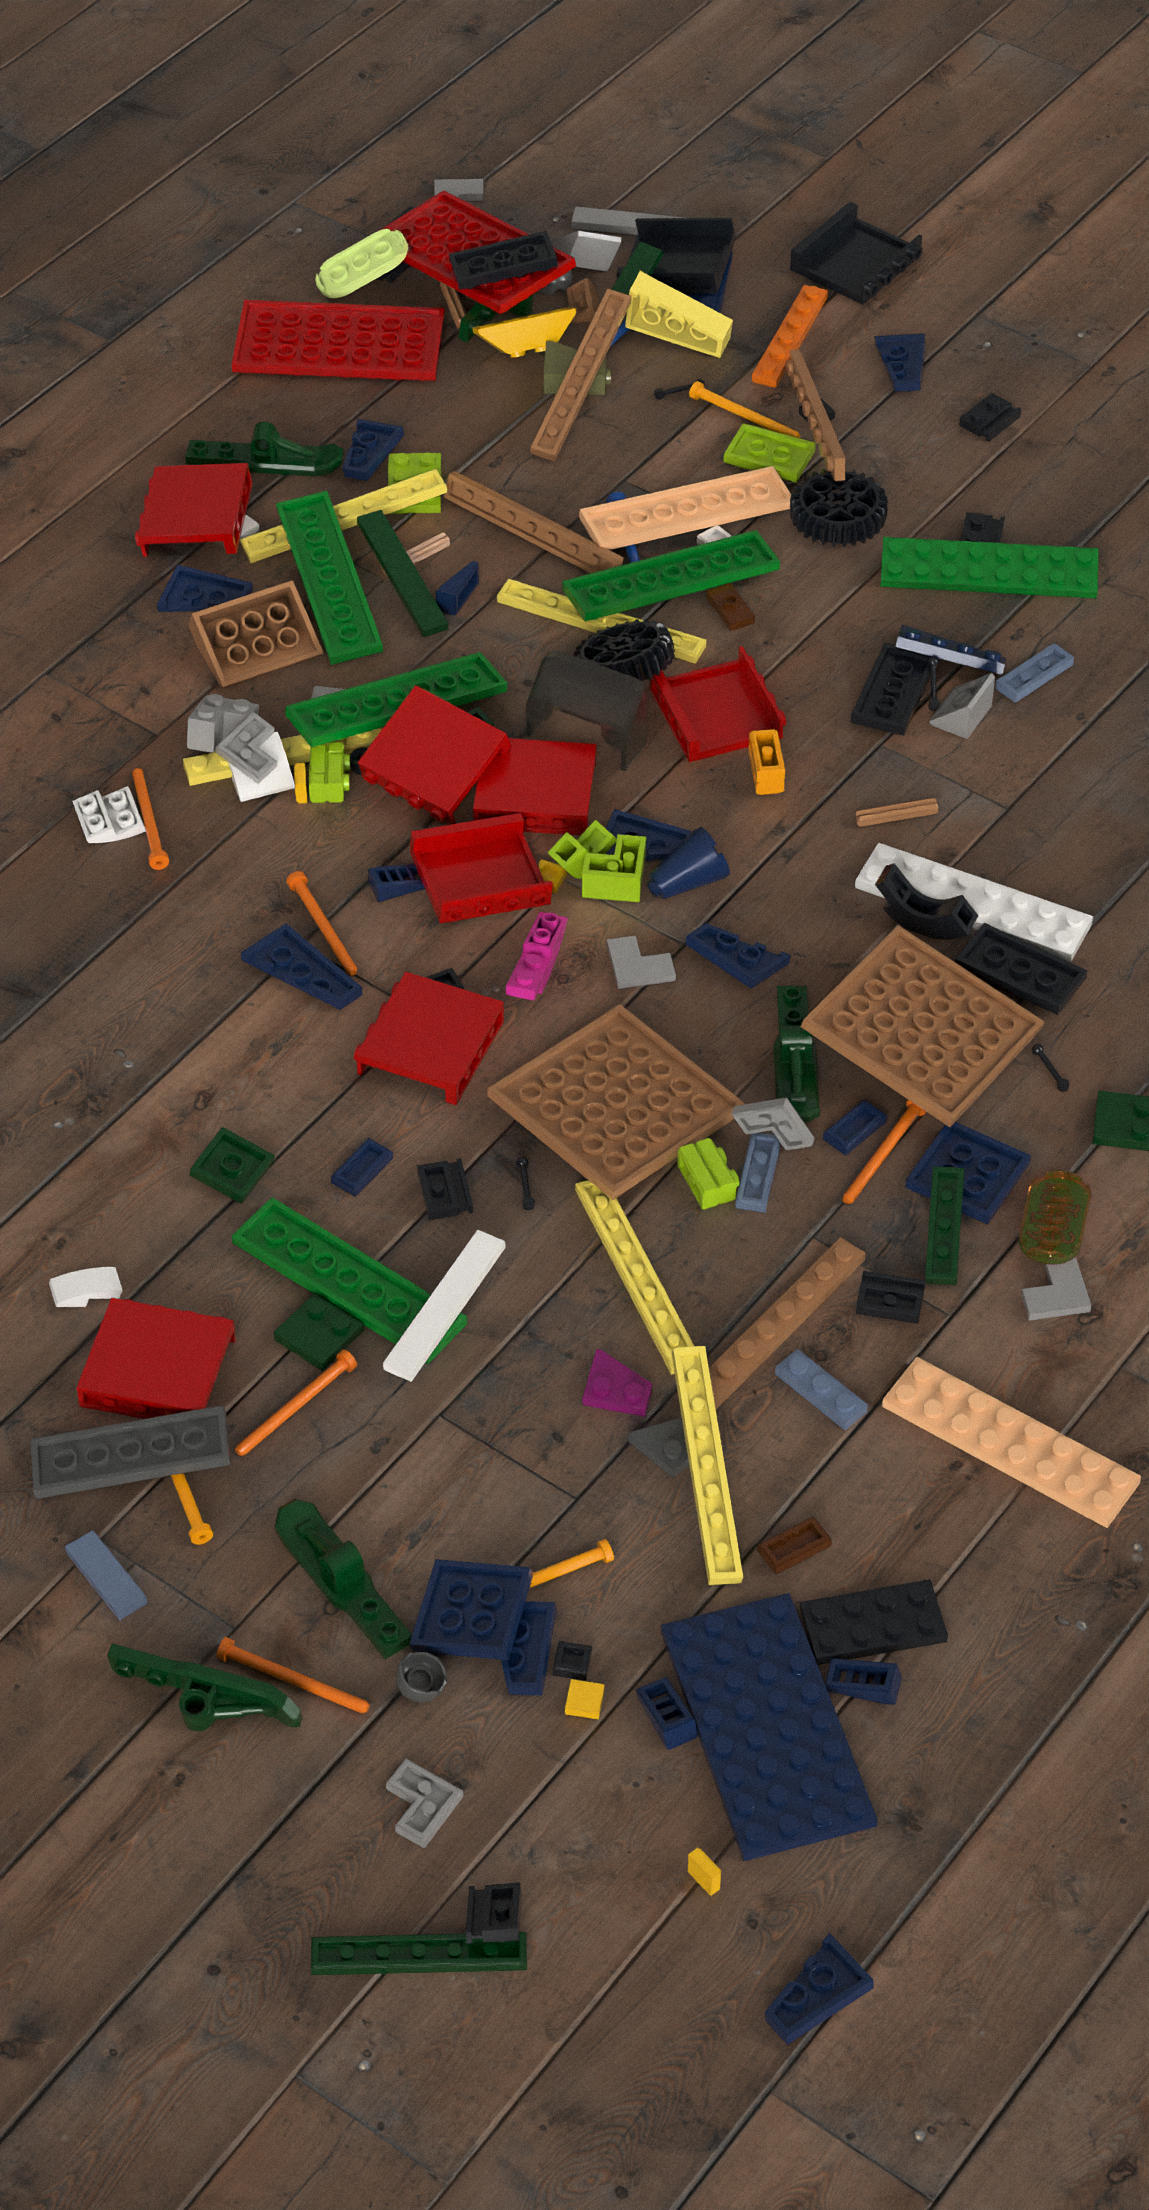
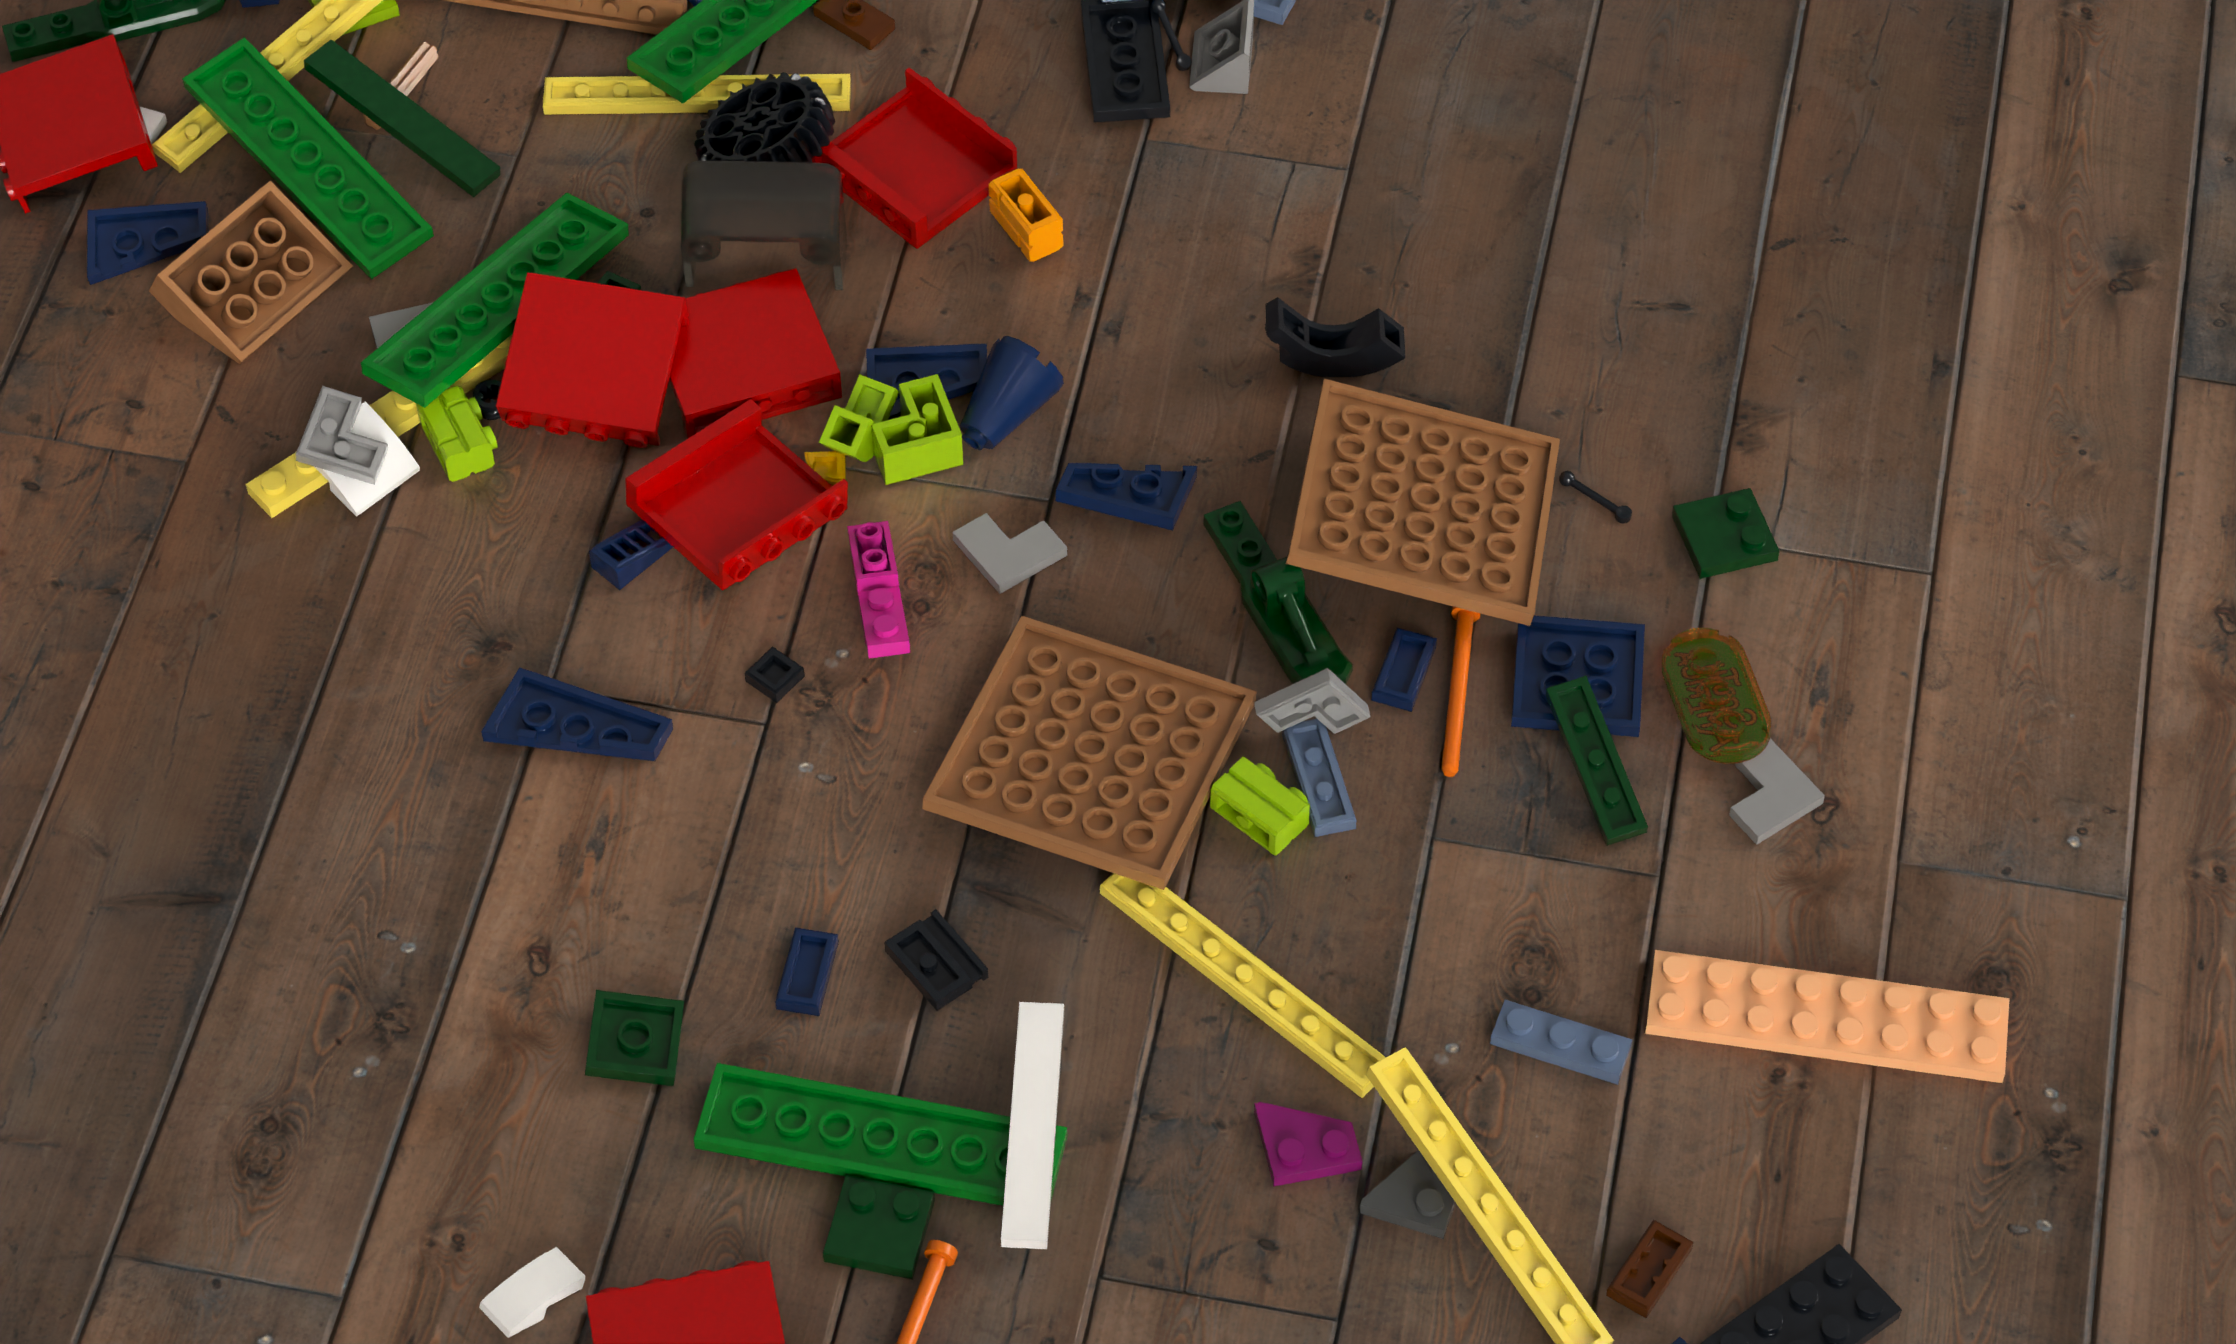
camera: 25 degrees left, 5 degrees up
(109, 816) = (187, 602): white slope -> none
(158, 858) = (290, 638): orange bar -> none
(216, 719) = (272, 413): light grey brick -> none
(297, 882) = (500, 602): orange bar -> none
(300, 783) = (429, 461): yellow tile -> none
(431, 1034) = (798, 750): red panel -> none
(456, 590) = (486, 118): dark blue slope -> none
(528, 1201) = (1051, 934): black hinge -> none
(783, 1318) = (1462, 958): medium nougat plate -> none
(890, 1297) = (1579, 882): black plate -> none
(896, 812) = (1219, 224): medium nougat axle -> none
(1009, 910) = (1429, 307): white plate -> none
(1021, 968) = (1490, 378): black plate -> none

